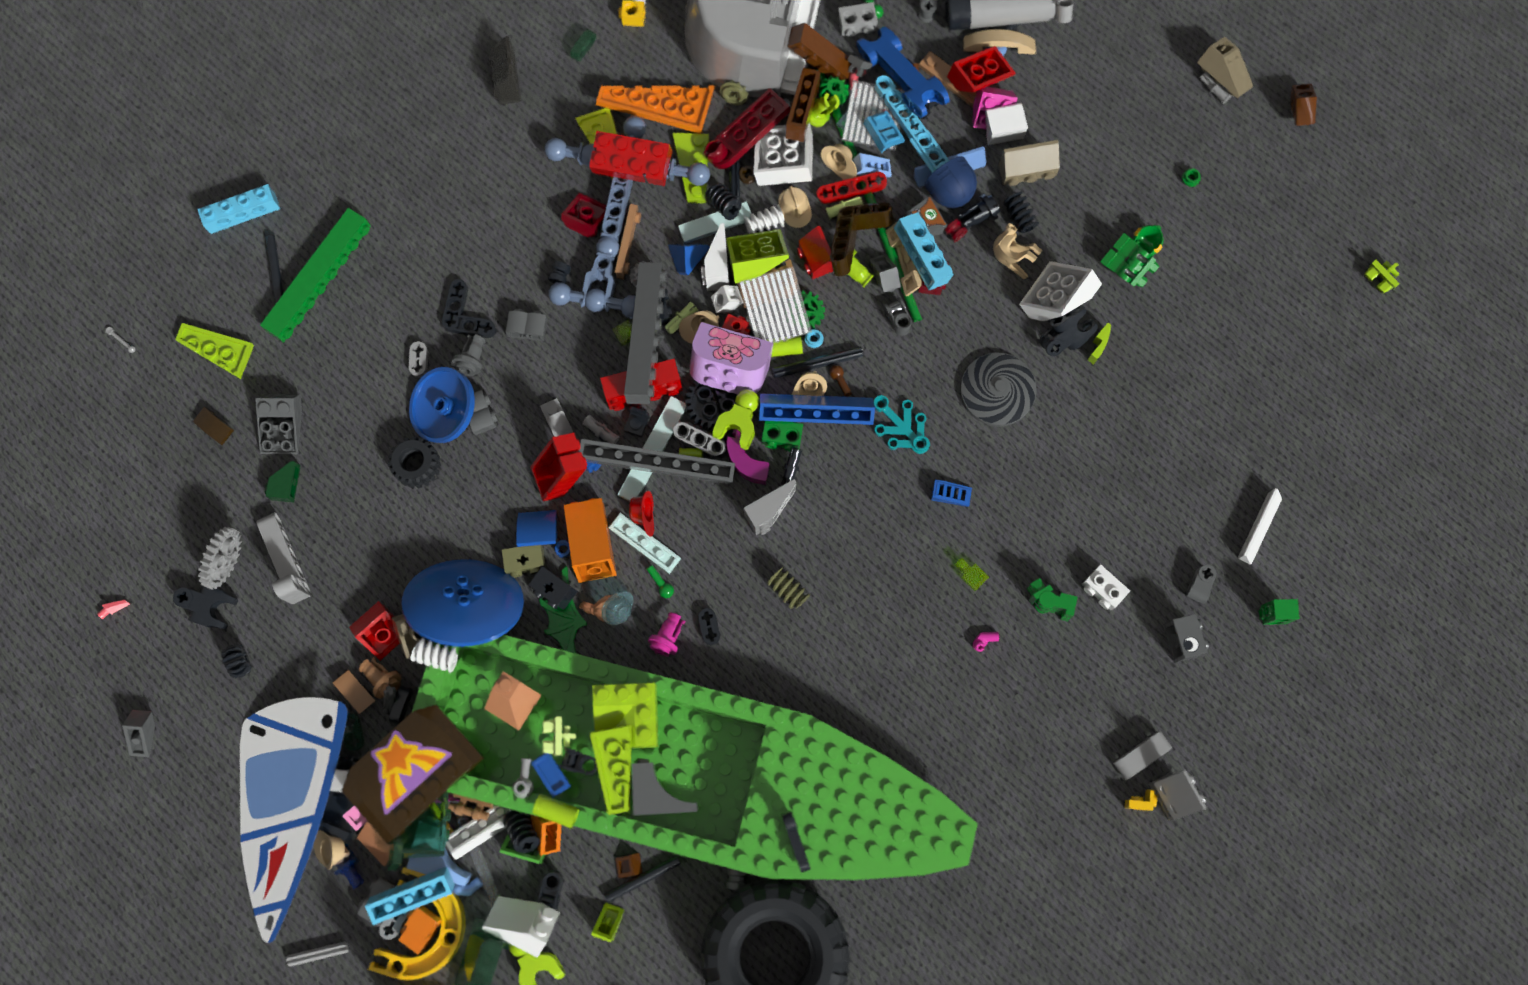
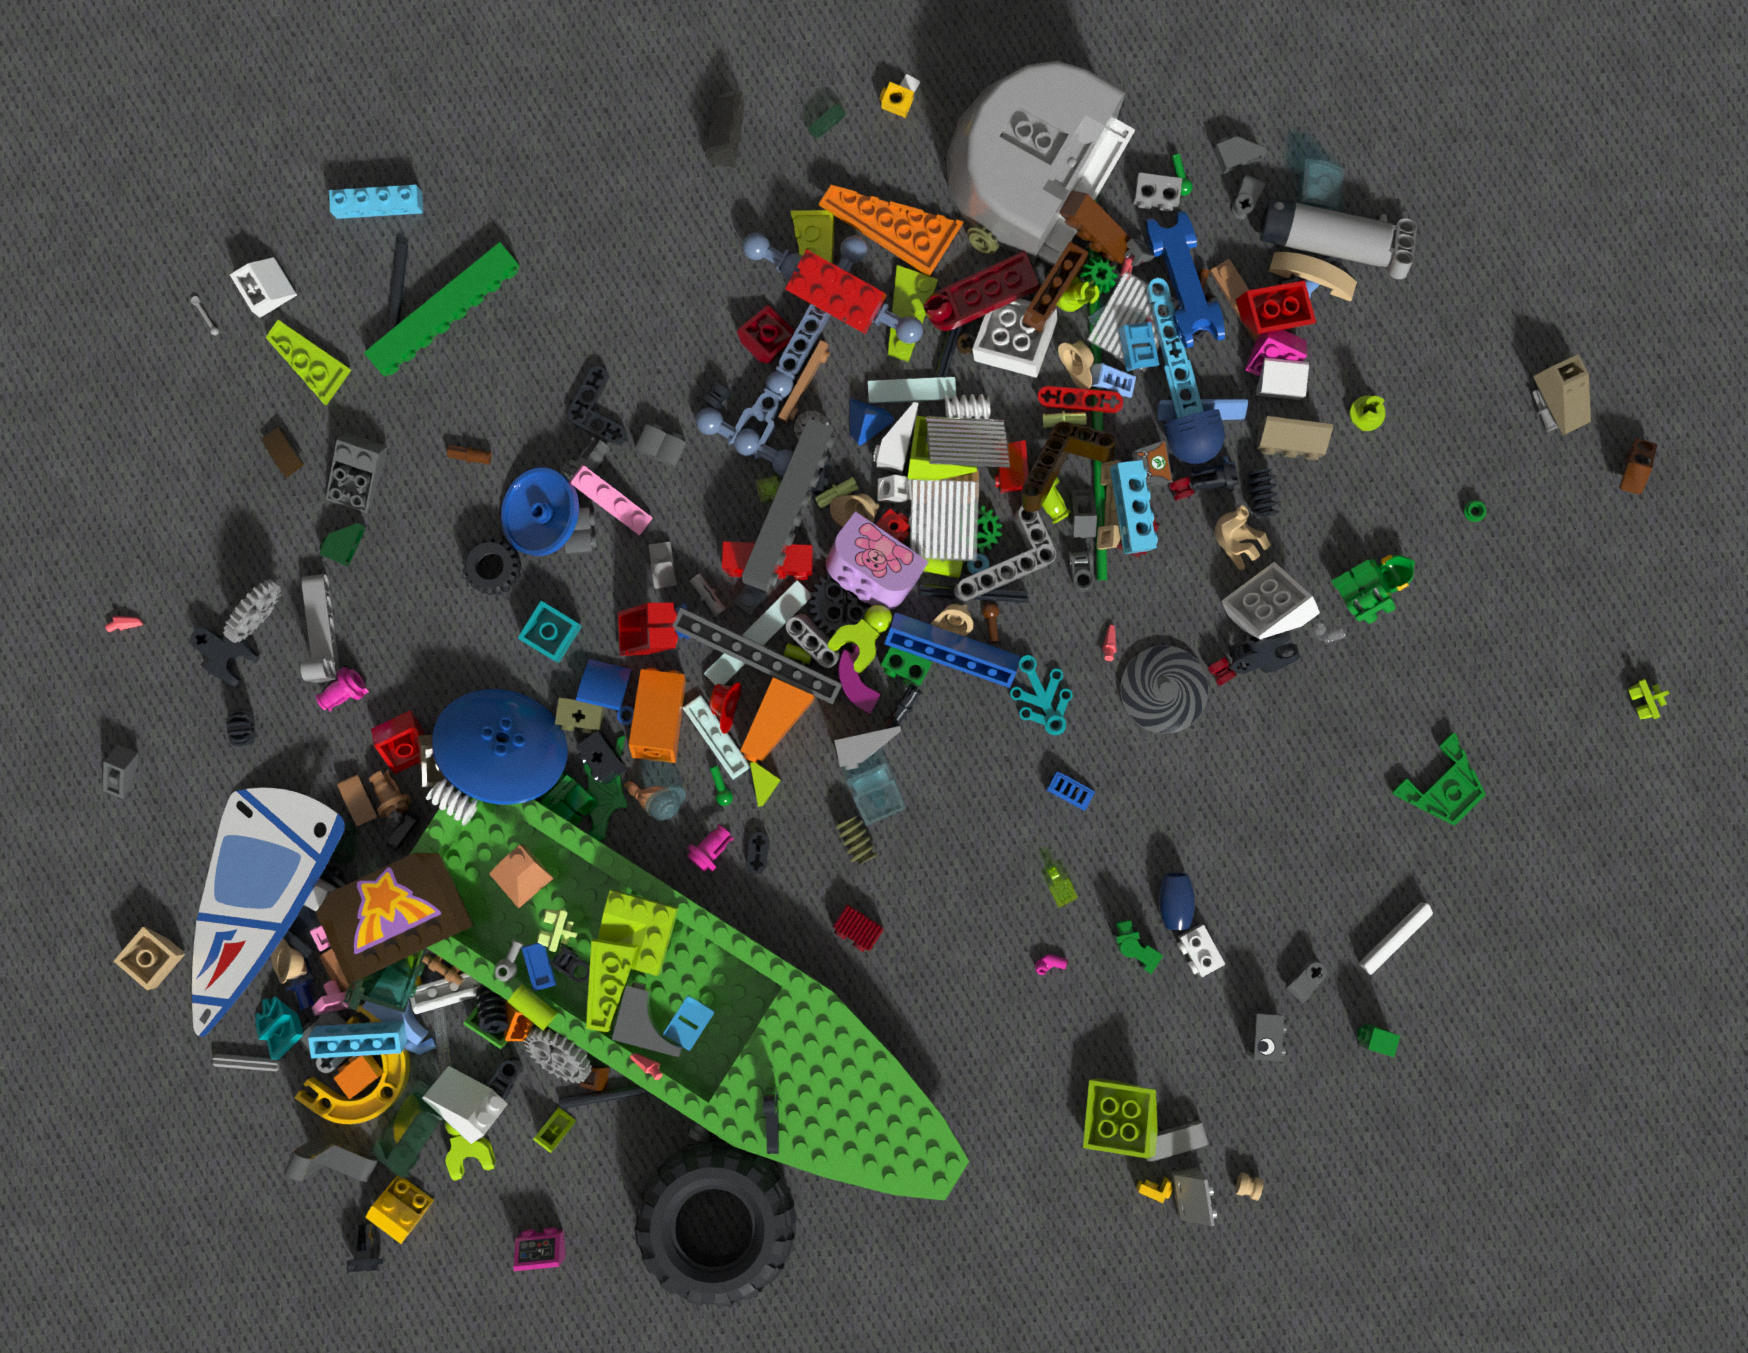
camera: 20 degrees right, 10 degrees up
(162, 300) = (263, 285): none -> white slope
(206, 886) = (149, 958): none -> tan slope
(317, 599) = (347, 685): none -> dark pink piece
(337, 911) = (278, 1026): none -> teal plate
(370, 380) = (469, 454): none -> reddish brown axle
(379, 870) = (332, 1001): none -> bright pink tile
(422, 359) = (524, 445): light grey beam -> none
(478, 499) = (550, 632): none -> teal brick
(497, 377) = (610, 499): none -> bright pink plate
(535, 629) = (568, 798): none -> green hips
(590, 852) = (557, 1055): none -> light grey gear
(671, 830) = (647, 1065): none -> coral bar
(689, 506) = (775, 717): none -> orange slope
(693, 791) = (681, 1031): none -> dark azure piece
(696, 565) = (764, 783): none -> lime slope
(723, 201) = (928, 371): black piece -> none
(773, 241) = (967, 441): none -> piece
(792, 546) = (876, 794): none -> clear light blue slope
(795, 207) = (1008, 399): tan piece -> none
(814, 662) = (857, 928): none -> dark red brick
(842, 328) = (1013, 565): none -> light grey beam
(942, 369) = (1109, 645): none -> coral bar
(1043, 361) = (1225, 675): none -> dark red wheel
(1071, 553) = (1176, 901): none -> dark blue piece
(1080, 129) = (1372, 418): none -> lime piece
(1092, 747) = (1121, 1118): none -> lime slope
(1101, 341) = (1300, 671): lime slope -> none
(1112, 307) = (1326, 635): none -> clear arm
(1217, 773) = (1248, 1186): none -> tan wheel
(1260, 396) = (1452, 792): none -> green wing

